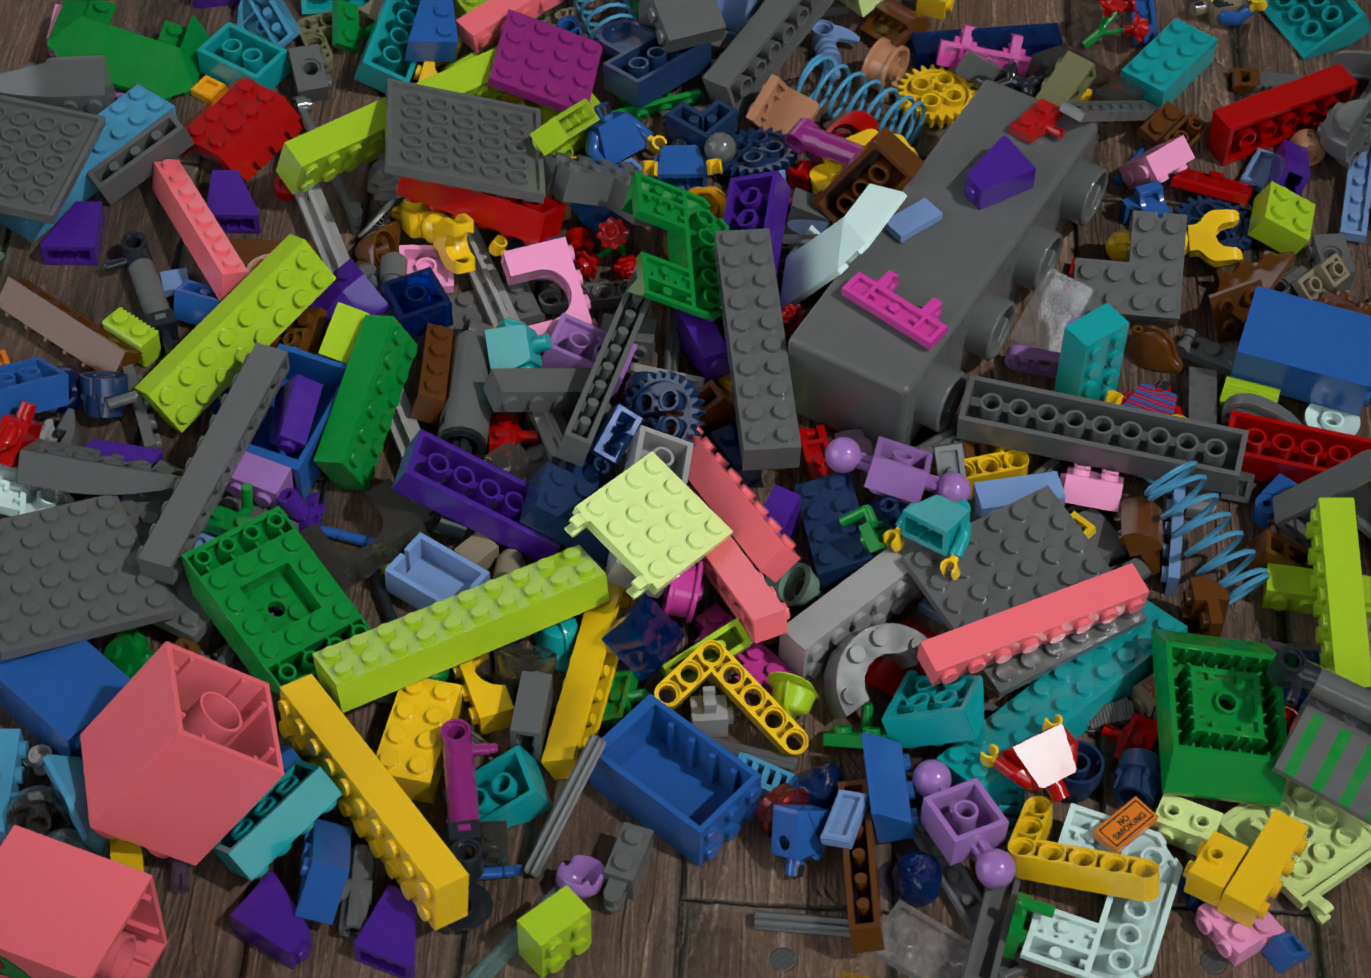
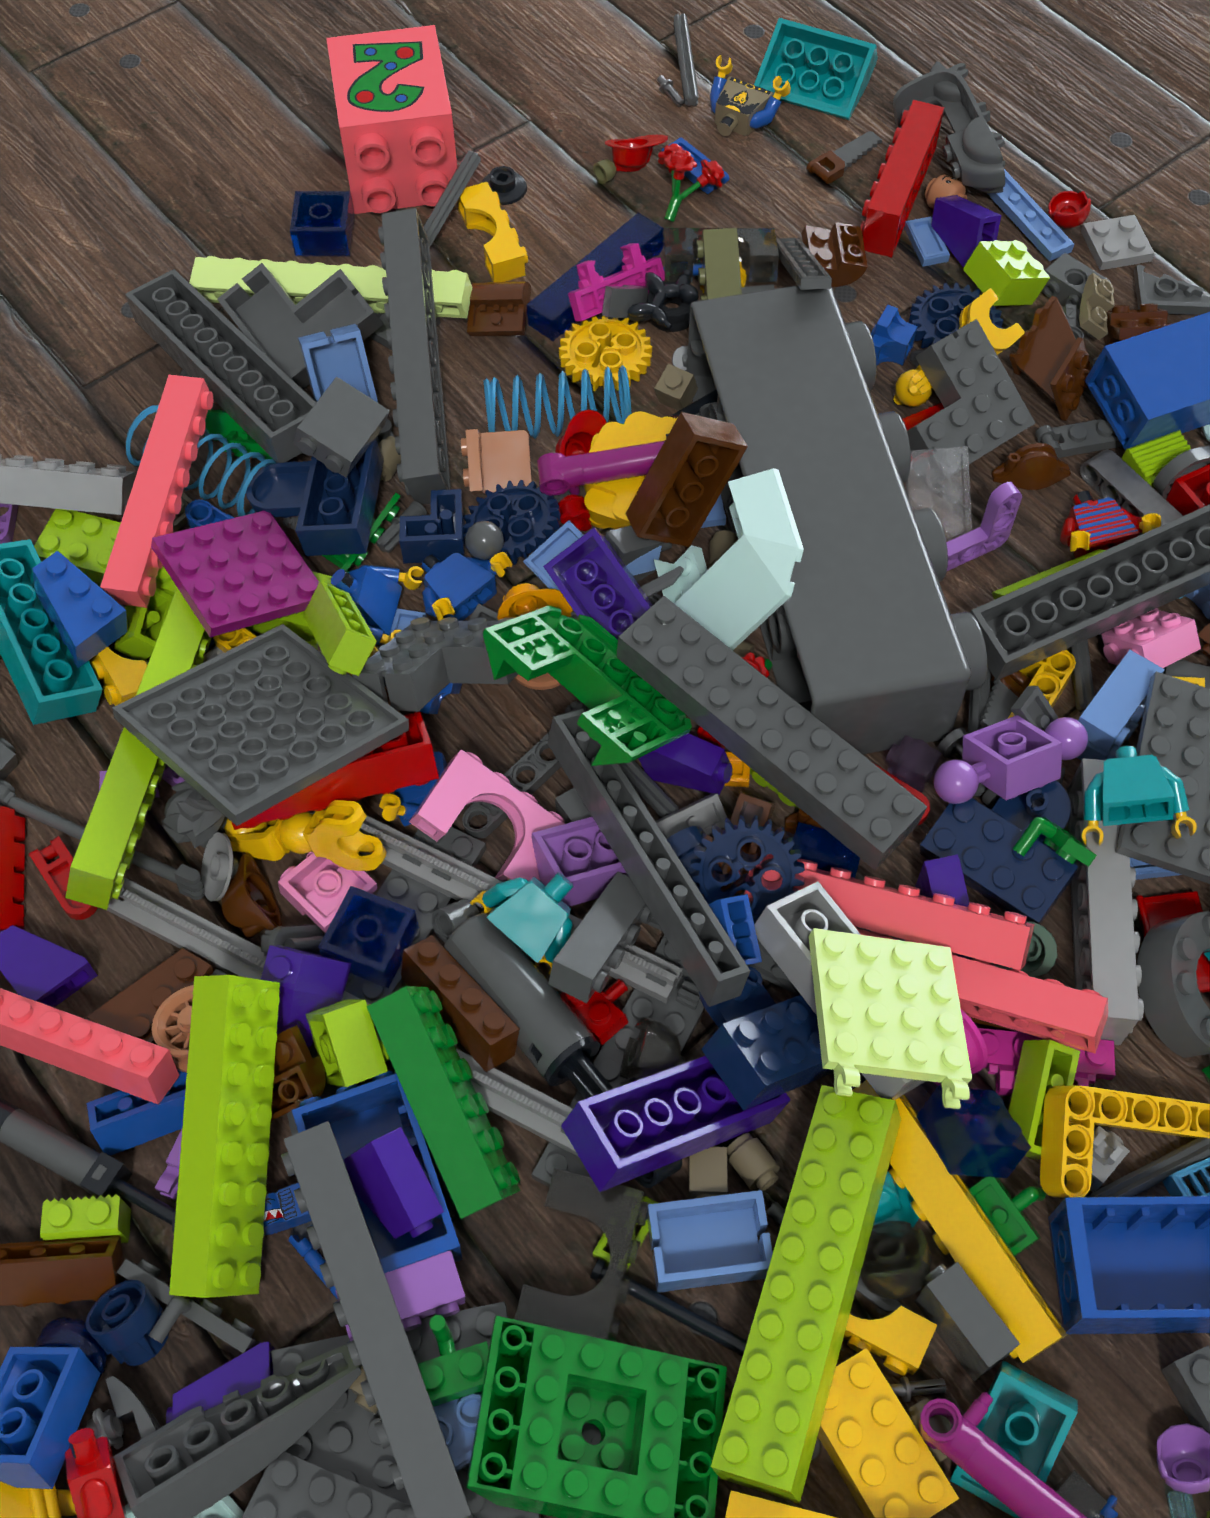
camera: 40 degrees left, 10 degrees up
(172, 279) = (62, 1109): medium blue tile -> none
(299, 511) = (495, 1281): dark purple bar -> none
(347, 536) = (554, 1261): blue wheel -> none
(392, 266) = (307, 918): dark grey brick -> none
(564, 805) = (1109, 1399): dark grey axle -> none
(580, 240) = (445, 739): red brick -> none
(614, 236) = (490, 710): red plant -> none
(792, 693) = (1151, 1073): lime piece -> none
(824, 41) = (457, 368): medium blue piece -> none
(878, 299) = (881, 598): dark pink hinge -> none
(885, 64) = (541, 353): nougat wheel -> none
(913, 220) = (795, 480): medium blue tile -> none
(999, 175) = (817, 389): dark purple slope -> none
(1038, 122) = (787, 314): red plate -> none
(1092, 354) = (1040, 516): teal brick -> none
(1157, 163) = (863, 285): bright pink brick -> none
(1171, 62) = (762, 187): teal brick -> none
(1213, 185) = (914, 280): red door -> none

